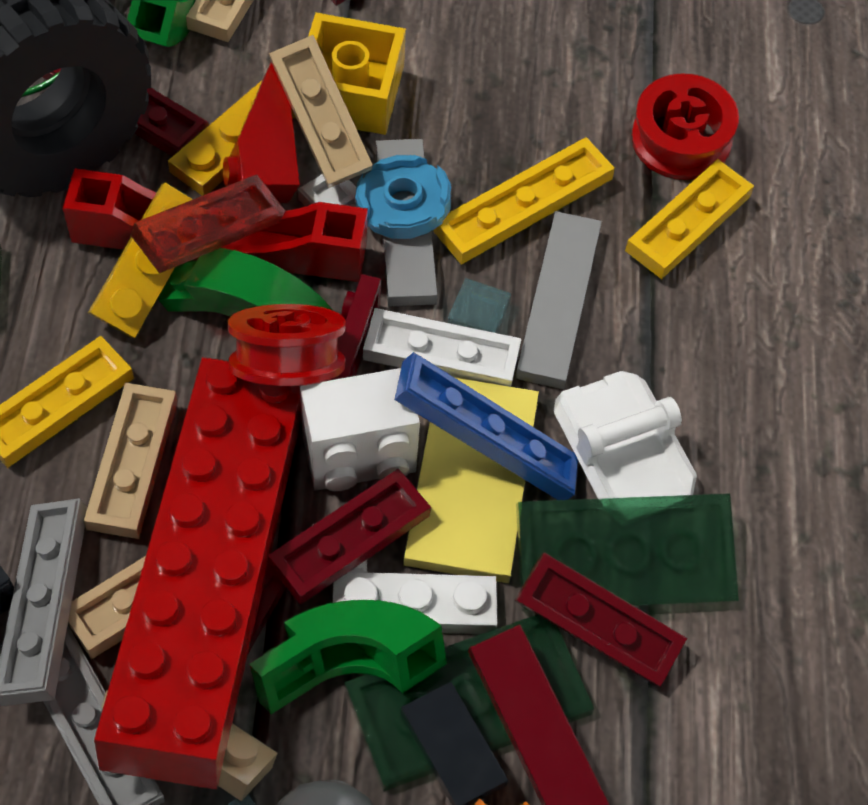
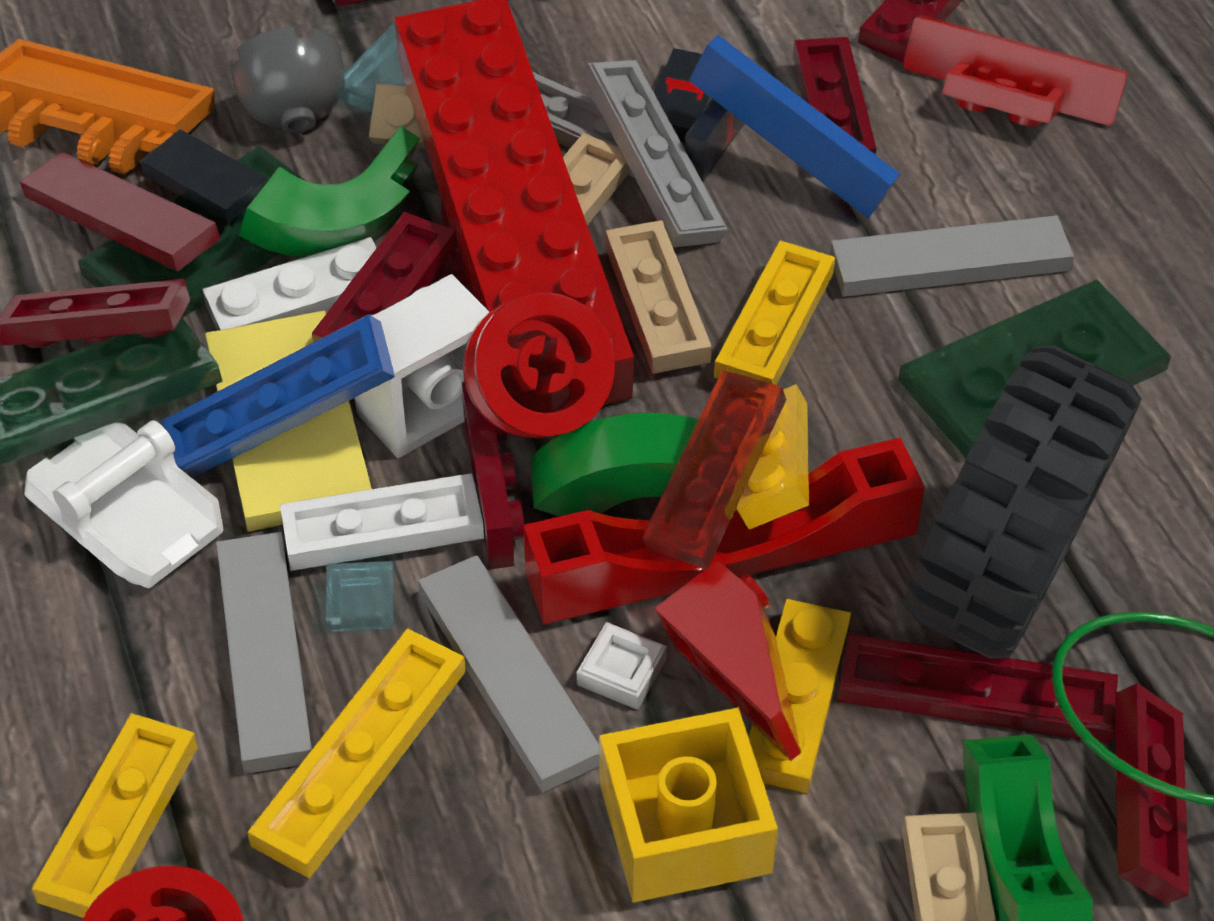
camera: 160 degrees right, 10 degrees down
(320, 111) = (676, 672): tan plate -> none
(404, 217) = (510, 698): dark azure tile -> none

